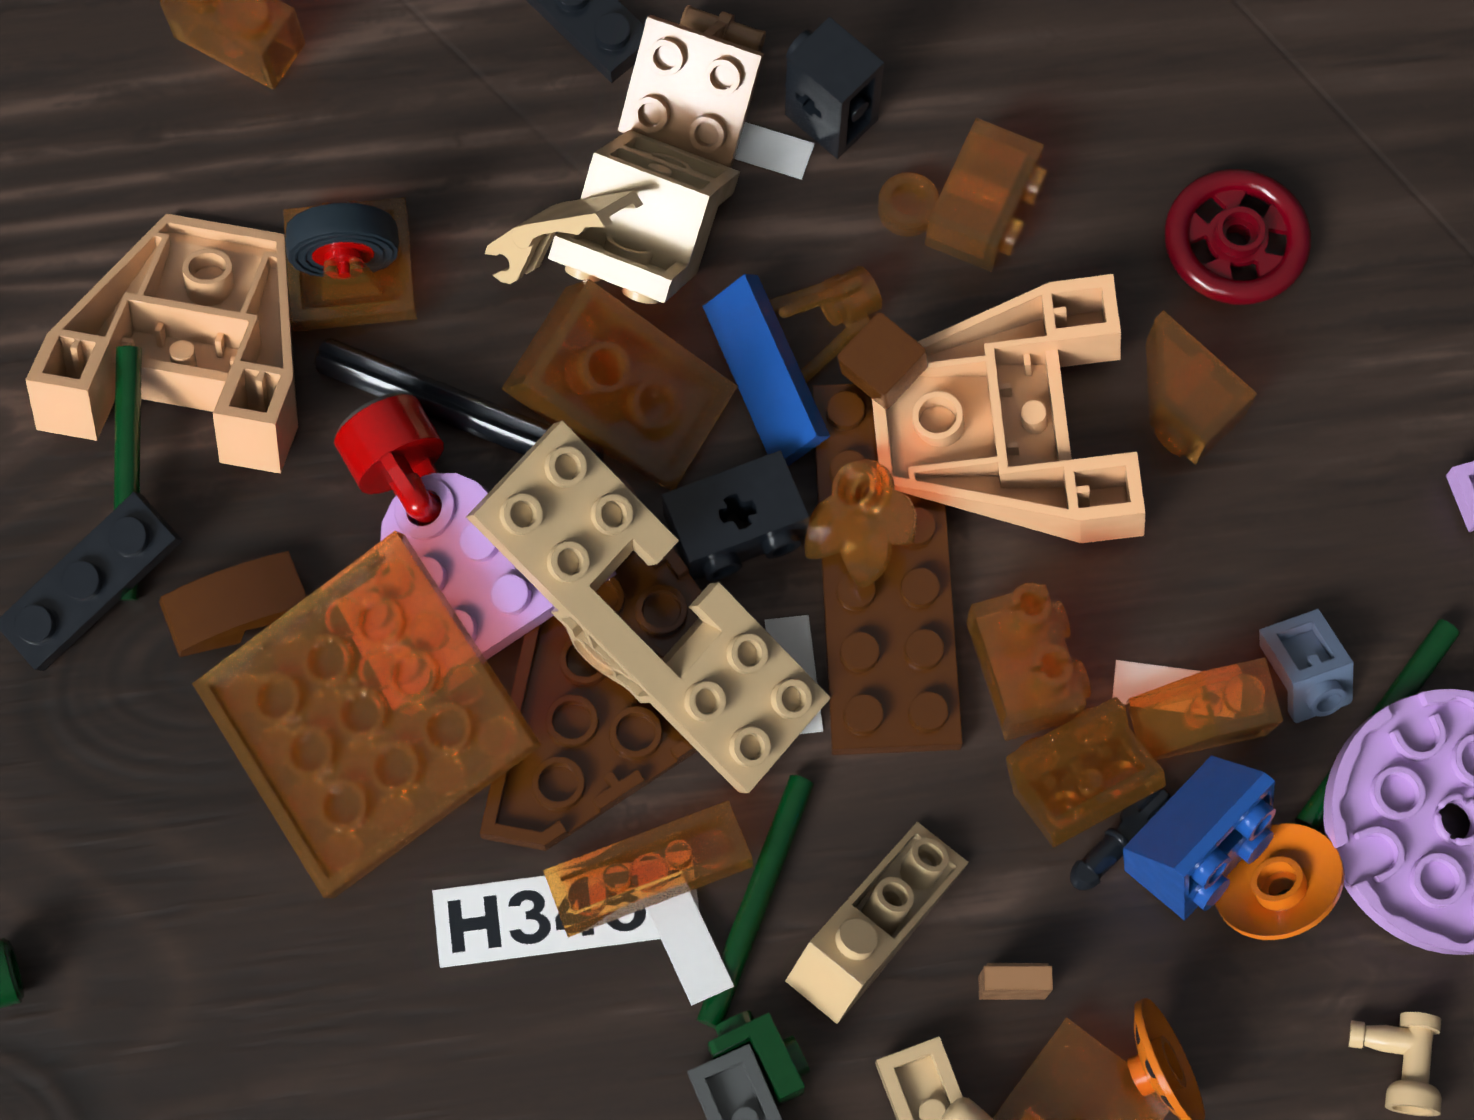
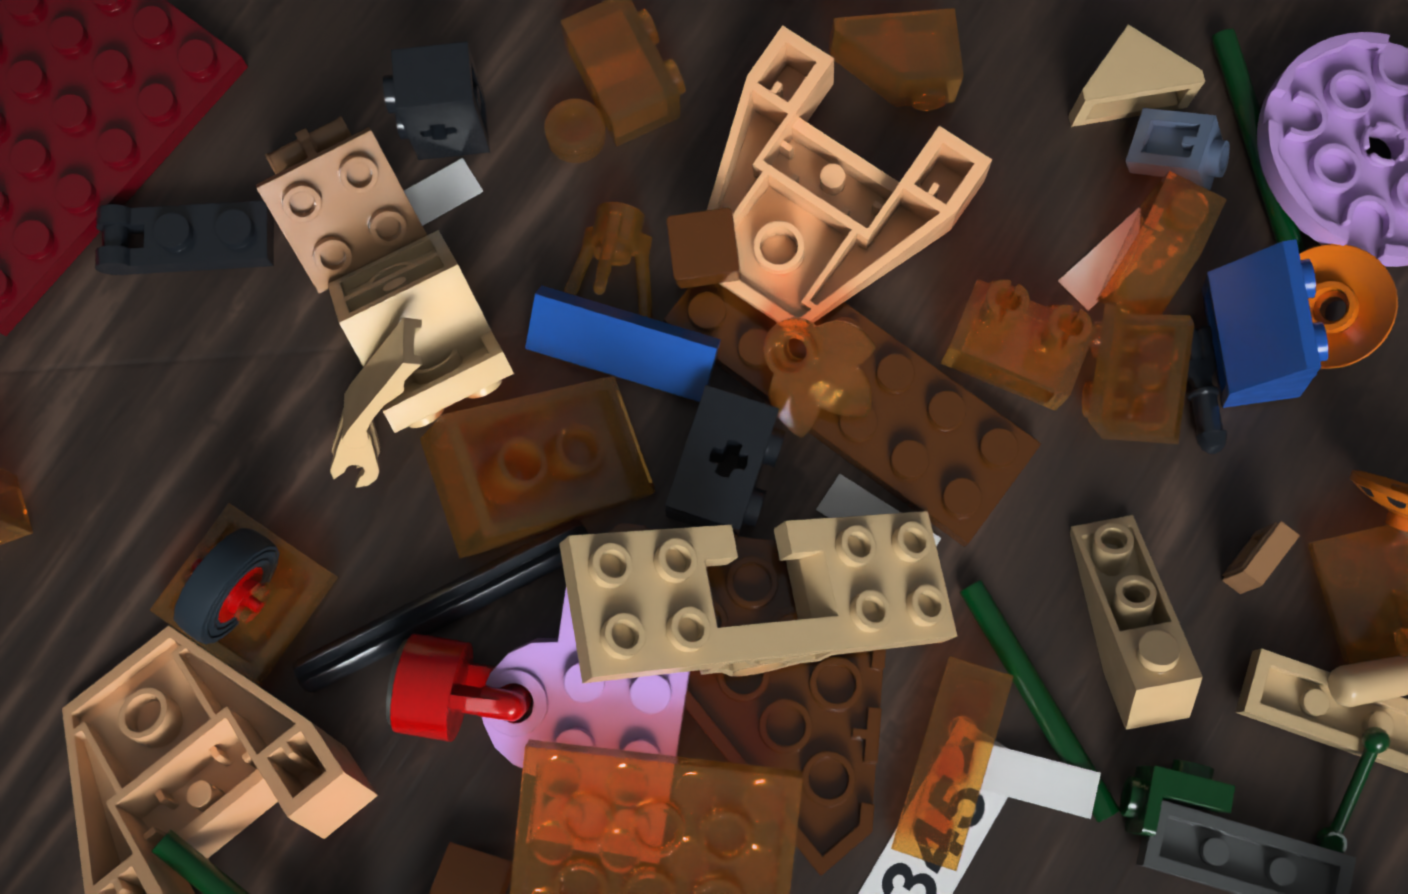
camera: 50 degrees left, 5 degrees up
(1330, 577) = (1135, 77): none -> tan slope

